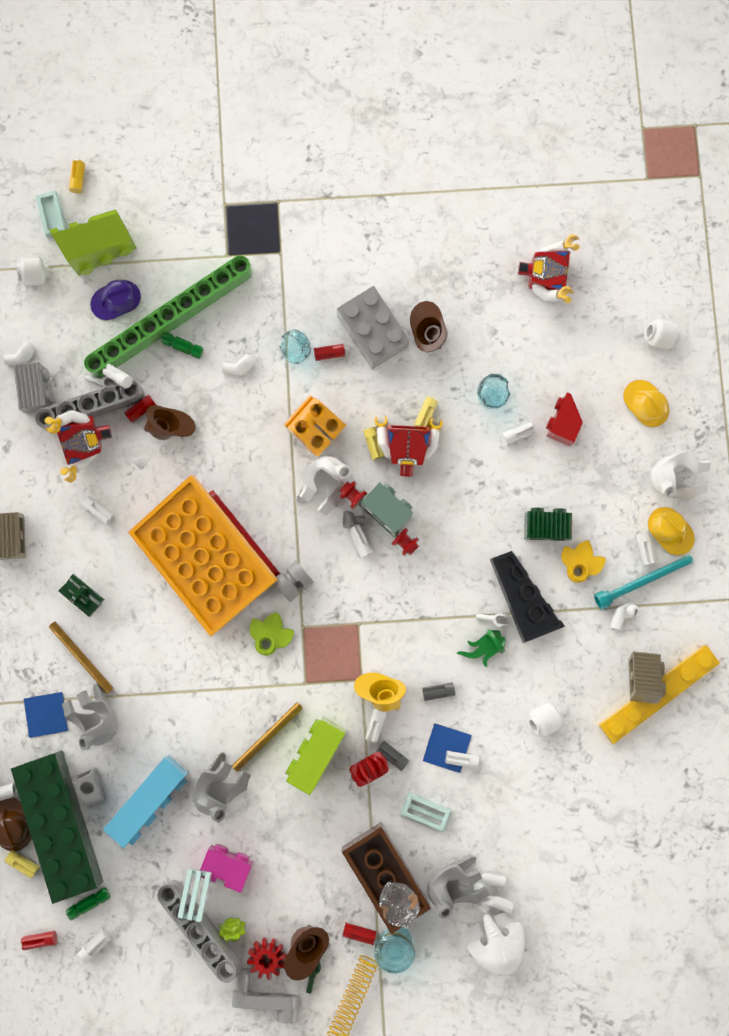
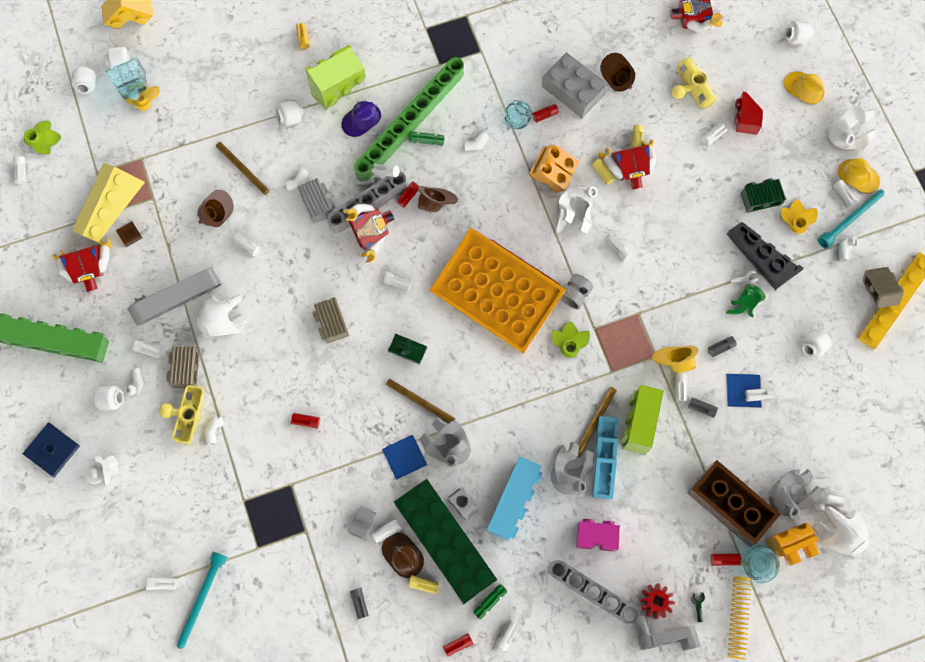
camera: 15 degrees left, 10 degrees down
(51, 212) = (290, 69): light aqua tile -> none
(189, 916) = (579, 542): light aqua tile -> none
(232, 929) = (620, 586): lime plant -> none
(264, 781) = (605, 457): none -> medium azure slope
(306, 951) = (688, 583): reddish brown piece -> none
(350, 519) = (604, 233): light grey piece -> none
(369, 769) = (689, 420): red gear -> none
(385, 510) = (632, 216): sand green brick -> none
(399, 904) = (755, 513): clear hair -> none
(436, 942) = (794, 539): none -> light orange hips
(444, 819) = (762, 447): light aqua tile -> none
(493, 391) = (684, 107): clear light blue hair -> none
(515, 351) = (688, 77): none -> light yellow piece

